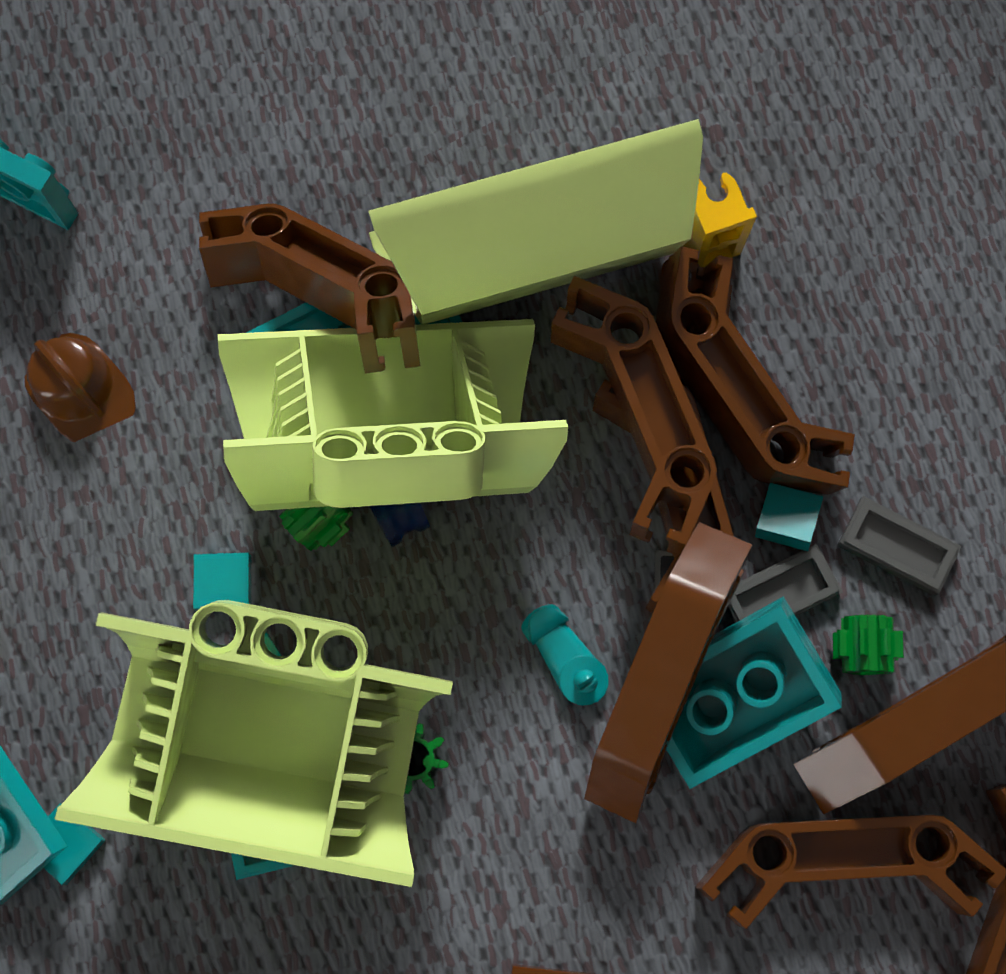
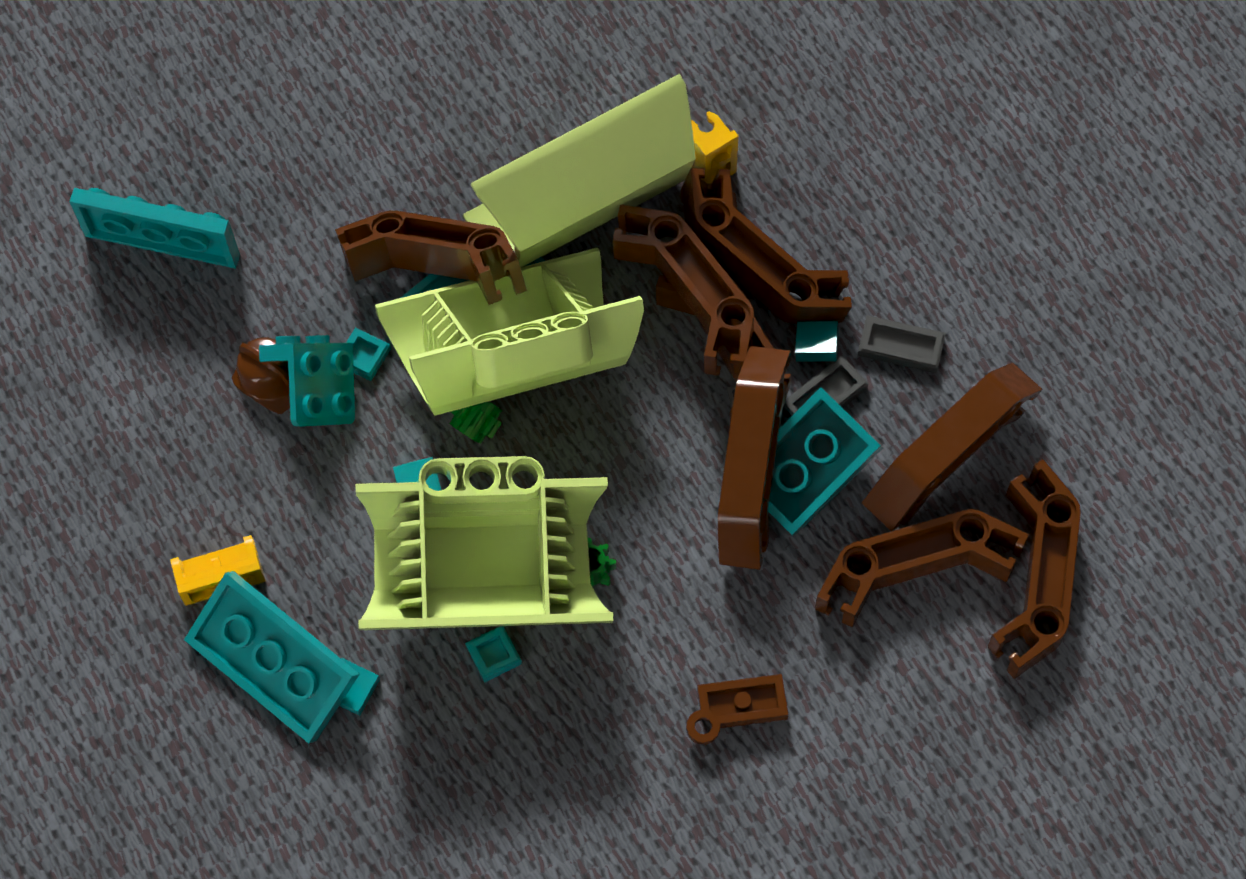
camera: 10 degrees left, 10 degrees down
(120, 413) = (318, 378): none -> teal bracket
(197, 387) = (367, 353): none -> teal tile
(399, 520) = (534, 405): wheel -> none
(571, 663) = (689, 481): teal piece -> none
(868, 645) = (894, 412): green gear -> none

